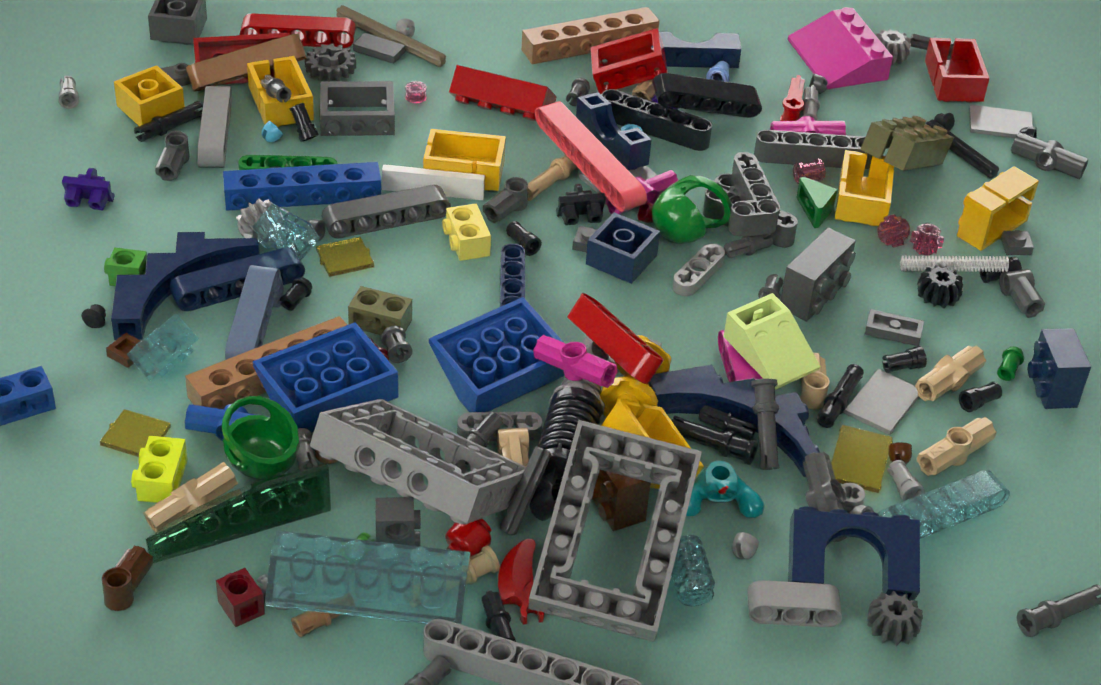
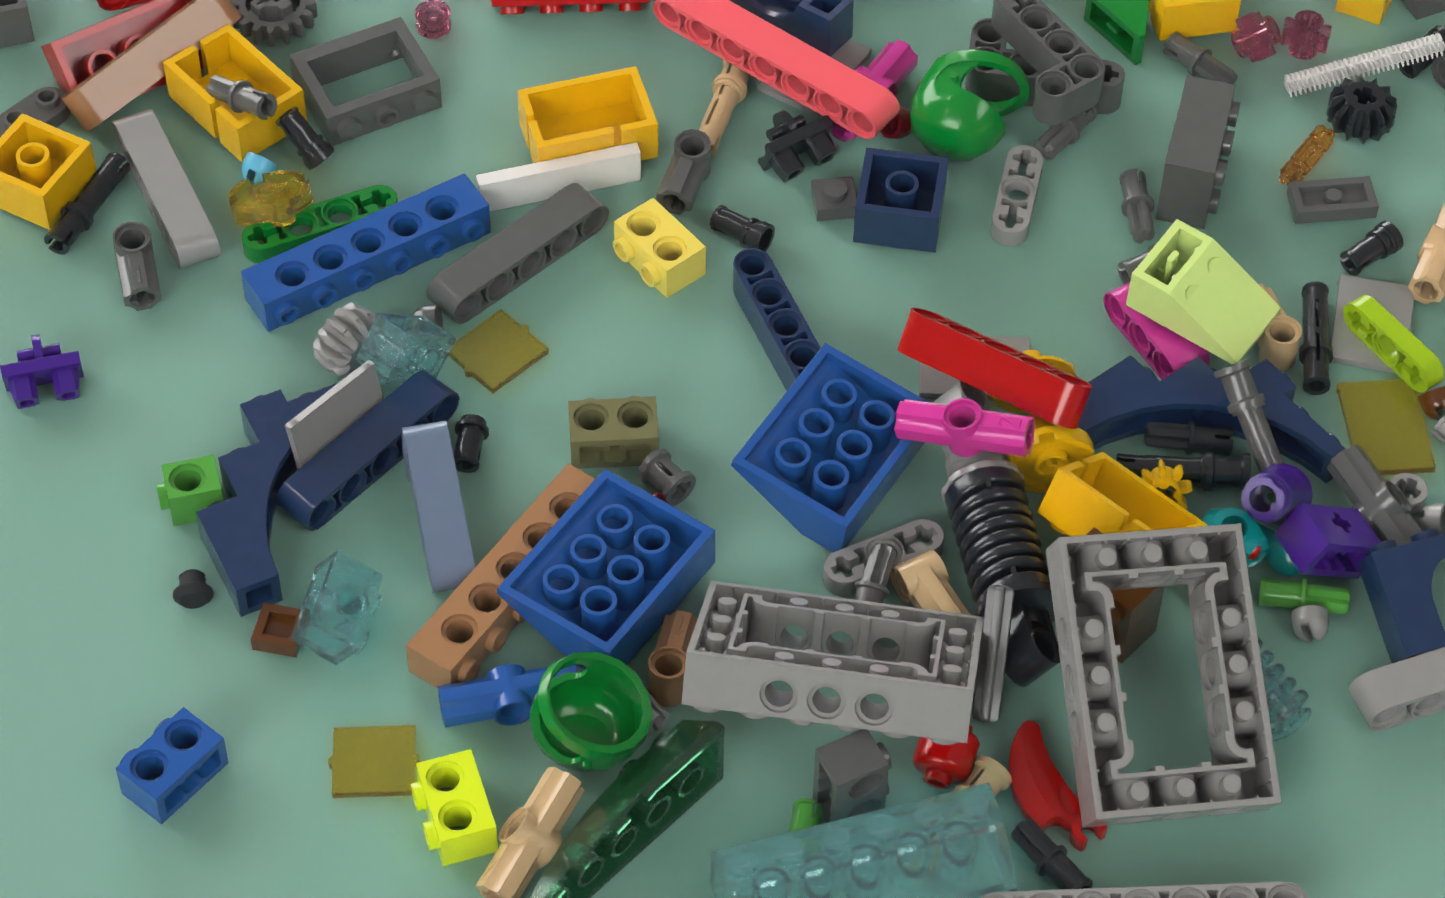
camera: 20 degrees left, 10 degrees up
(223, 249) = (333, 413): none -> light grey piece
(265, 146) = (272, 200): none -> clear yellow plate
(698, 436) = (1164, 476): none -> yellow gear
(737, 524) = (1297, 594): none -> bright green axle
(758, 465) = (1289, 485): none -> dark purple plant
(774, 498) = (1326, 539): none -> dark purple brick
(848, 229) = (1197, 59): none -> dark grey axle
(887, 411) = (1393, 343): none -> lime beam
(893, 300) = (1307, 155): none -> clear orange axle

